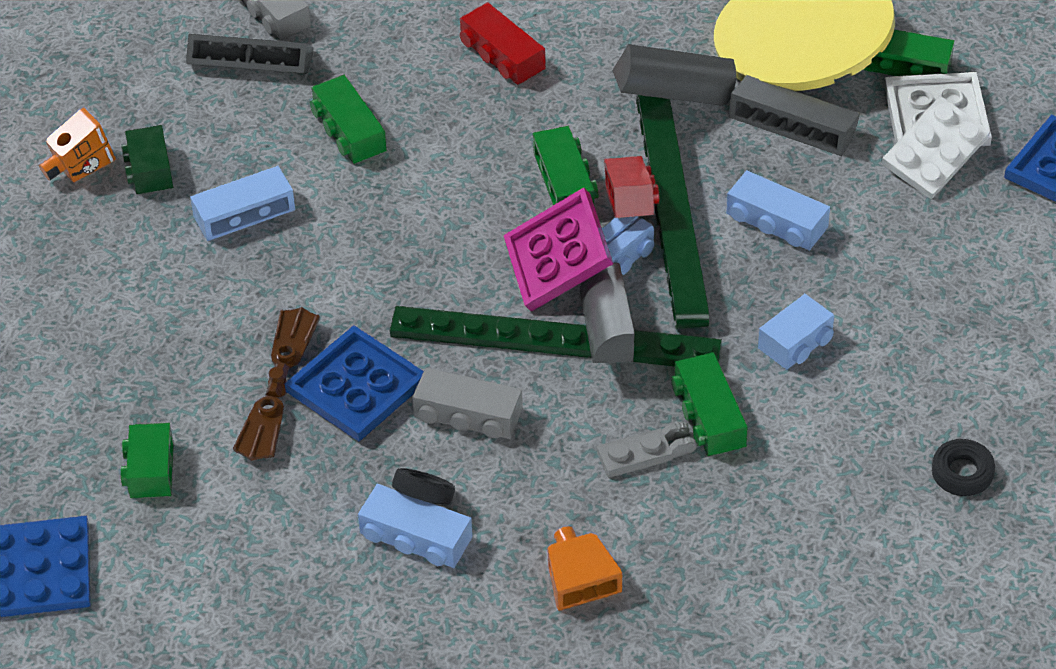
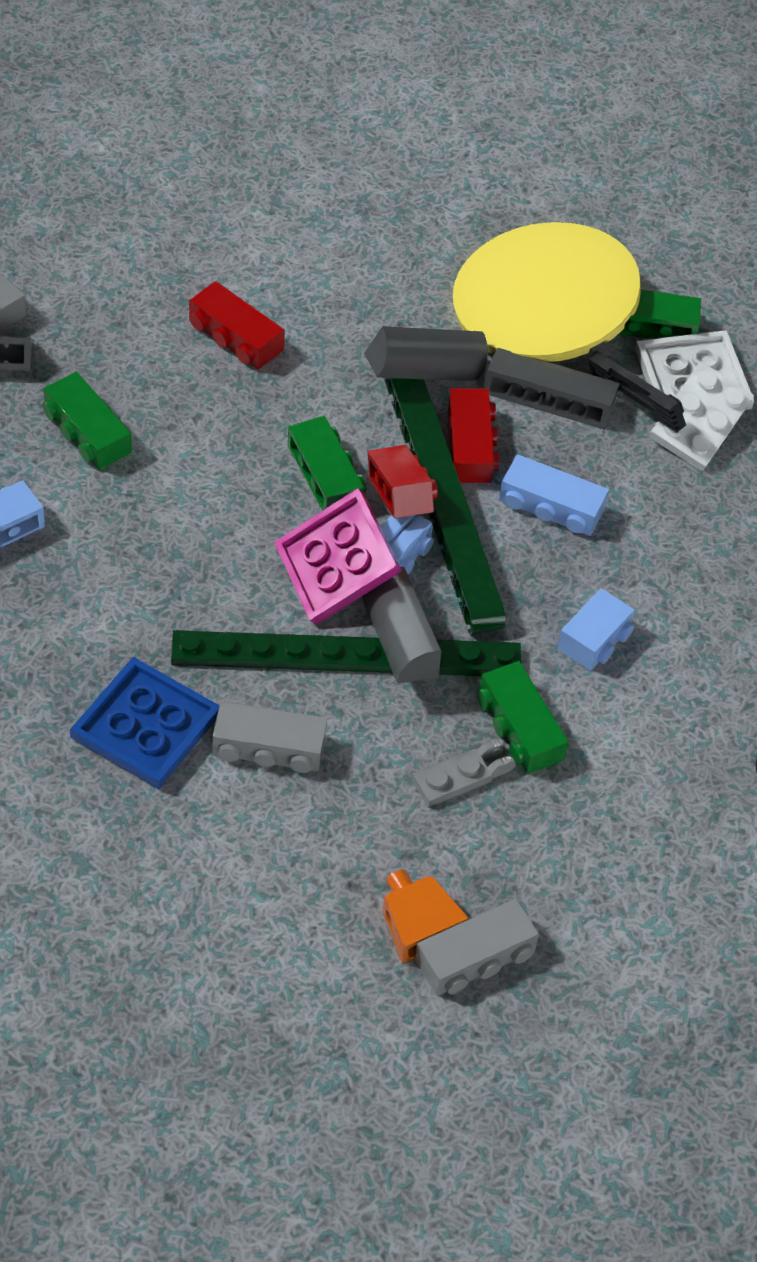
camera: 15 degrees left, 5 degrees up
(262, 428) = (53, 780): reddish brown piece -> none
(415, 526) = (237, 882): light blue brick -> none
(423, 486) = (240, 837): black tyre -> none
(628, 601) = (476, 948): none -> light grey brick
(709, 152) = (472, 434): none -> red brick
(895, 134) = (665, 407): none -> black container

